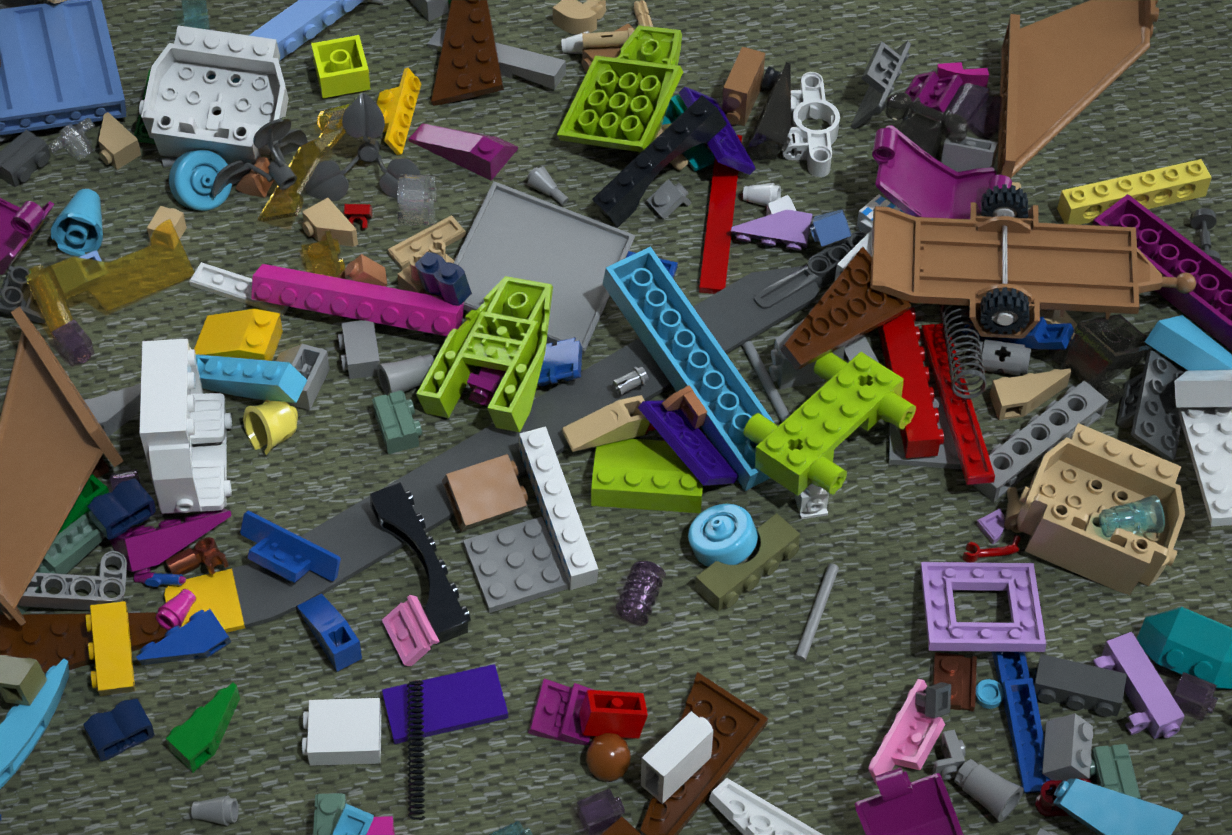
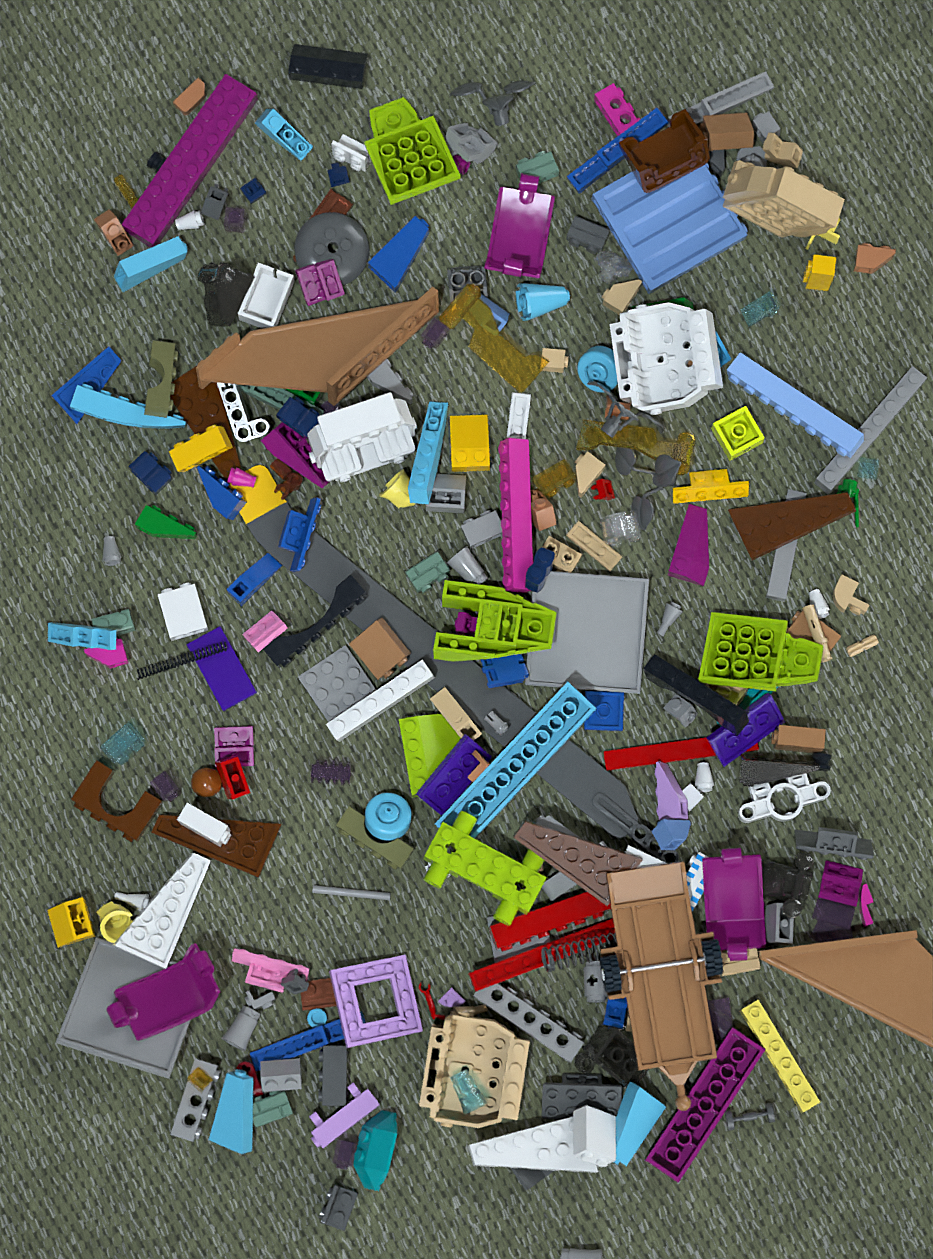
camera: 75 degrees right, 25 degrees up
(155, 579) = (264, 457): blue piece -> none
(766, 380) = (543, 811): light grey bar -> none
(1022, 394) = (564, 1000): tan slope -> none

